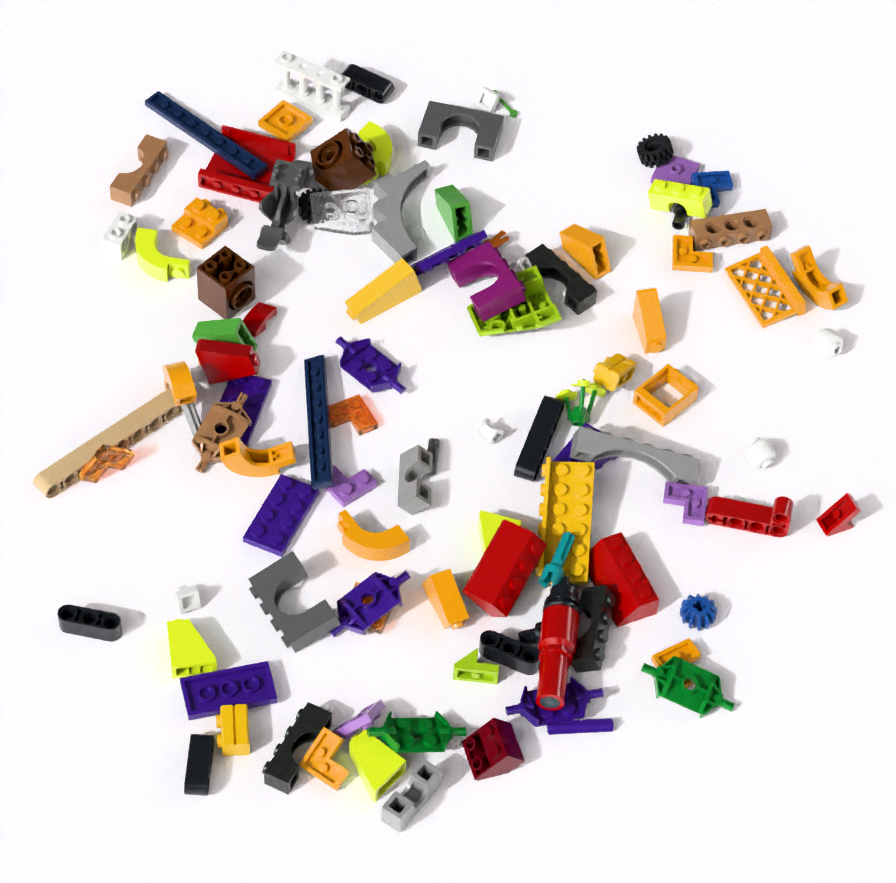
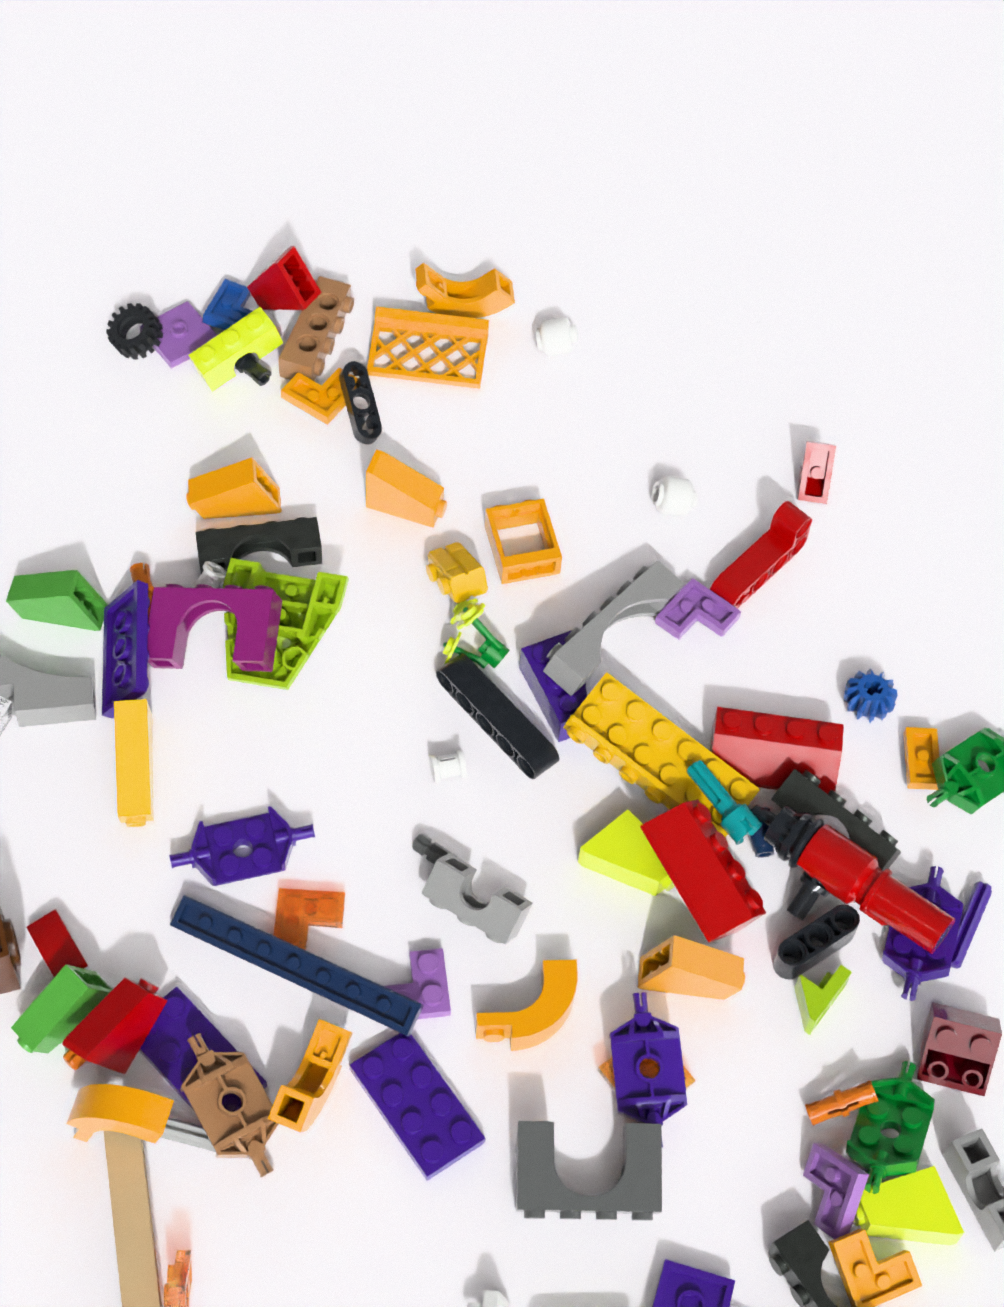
camera: 60 degrees left, 5 degrees up
(416, 704) = (841, 1103): none -> orange pin
(682, 280) = (356, 414): none -> black beam
(741, 193) = (285, 284): none -> red slope

